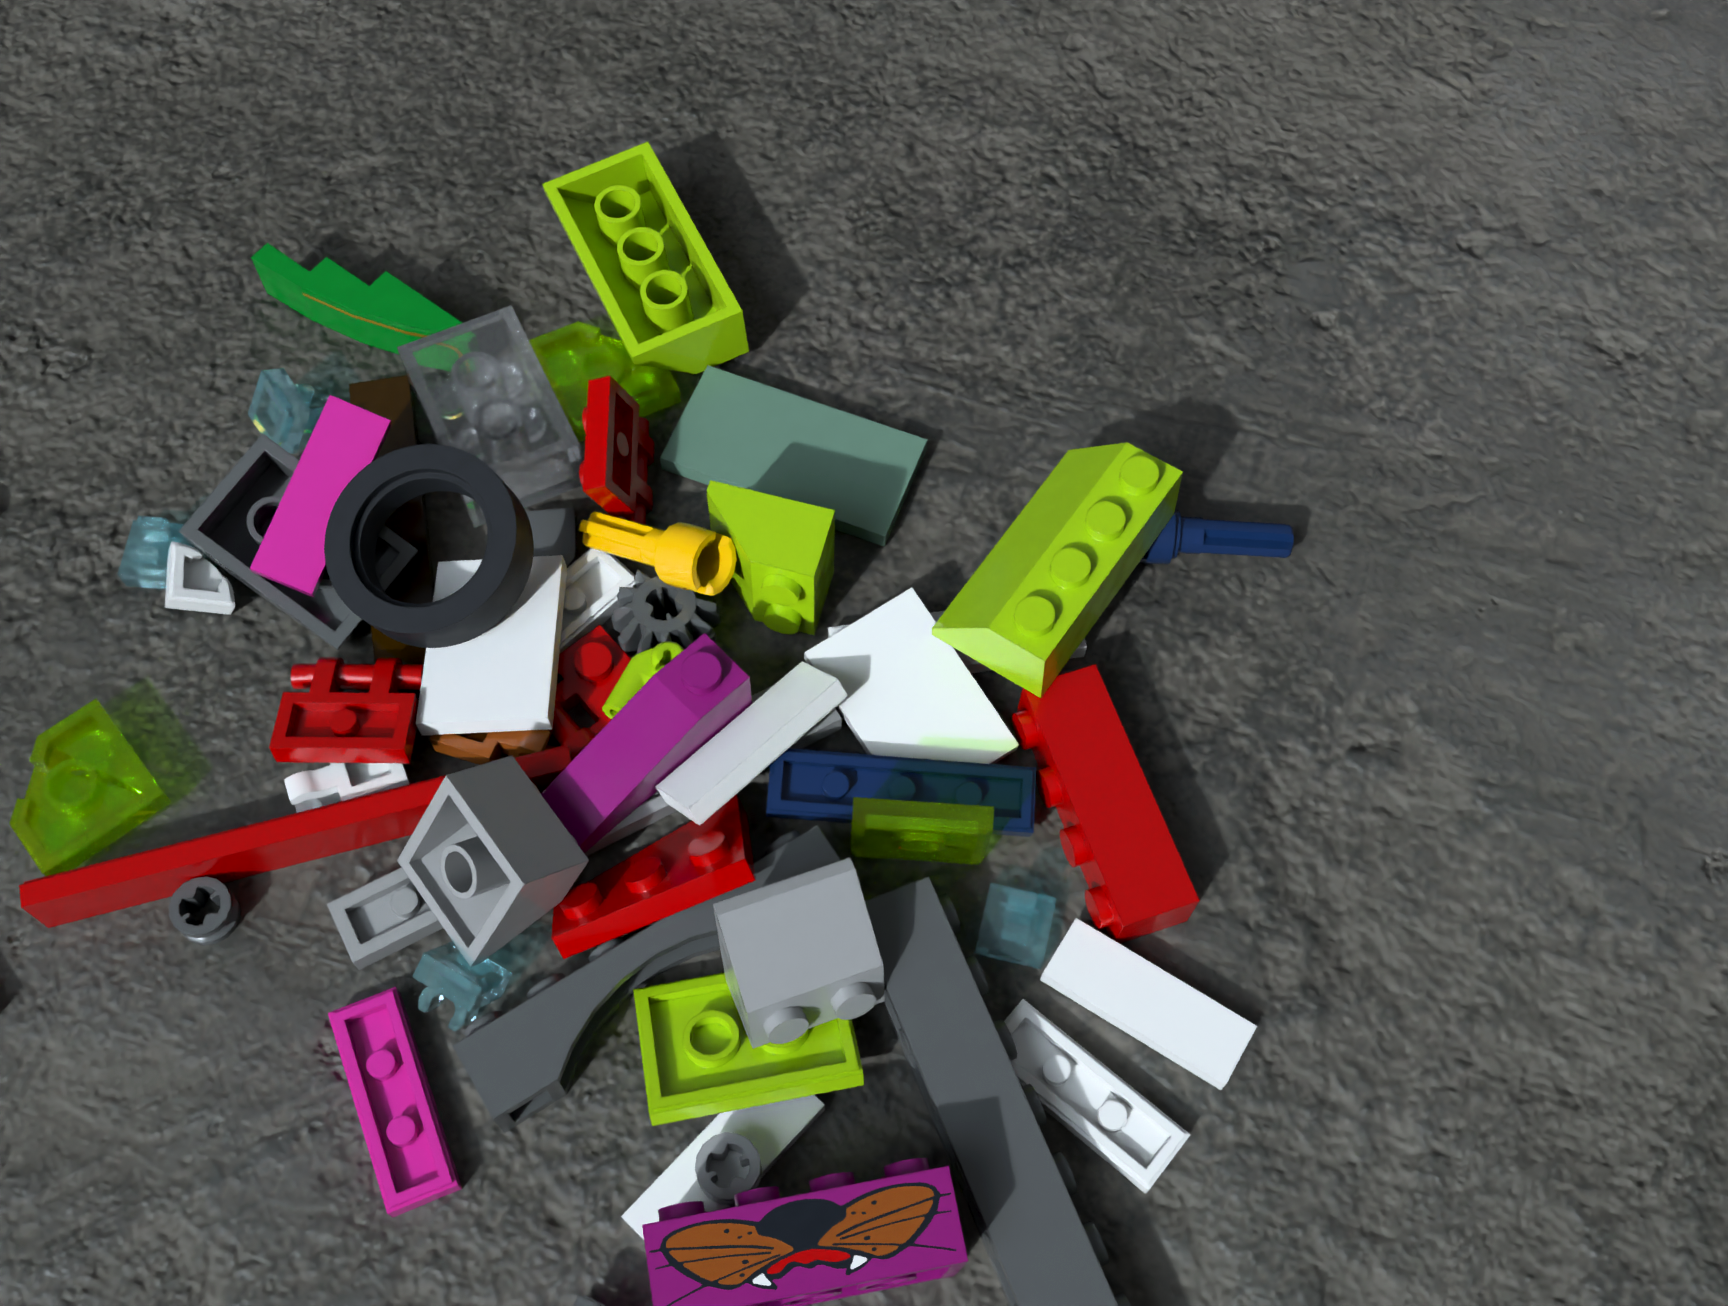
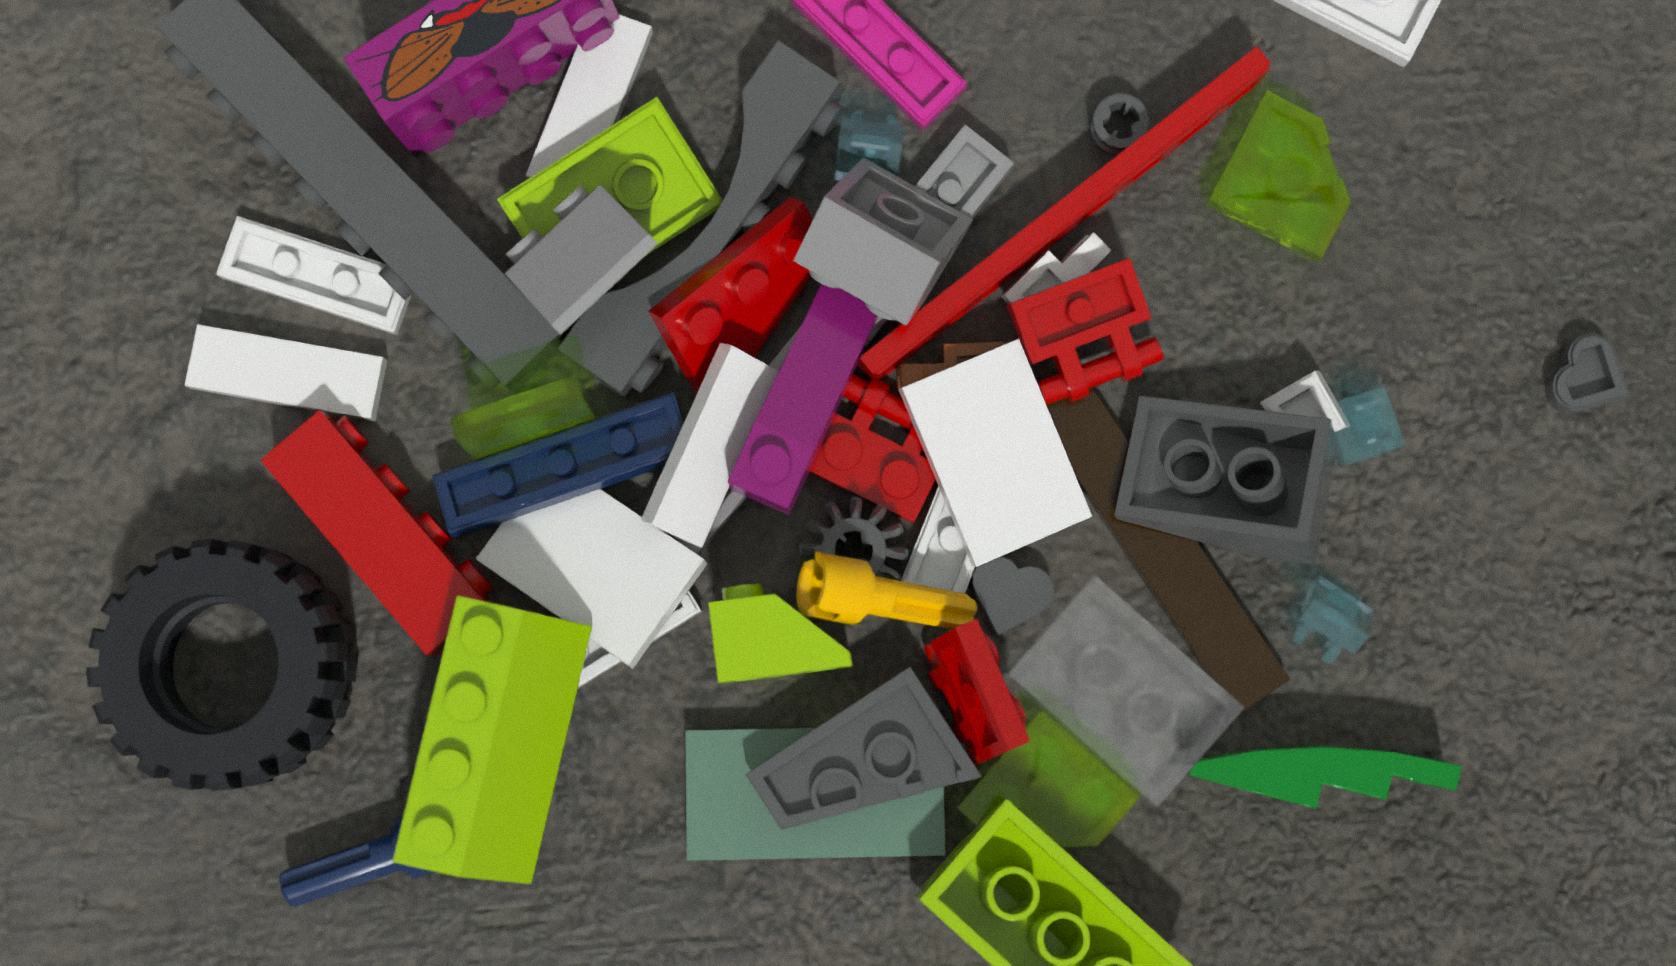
camera: 160 degrees right, 20 degrees up
(338, 449) = (1220, 511): dark pink tile -> none
(377, 494) = (1123, 430): black tyre -> none
(638, 673) = (838, 471): lime arm -> none
(717, 1149) = (563, 78): light grey bush -> none
(740, 447) = (864, 756): none -> dark grey wing
(1015, 925) = (422, 395): clear light blue tile -> none
(1338, 674) = (141, 647): none -> black tyre

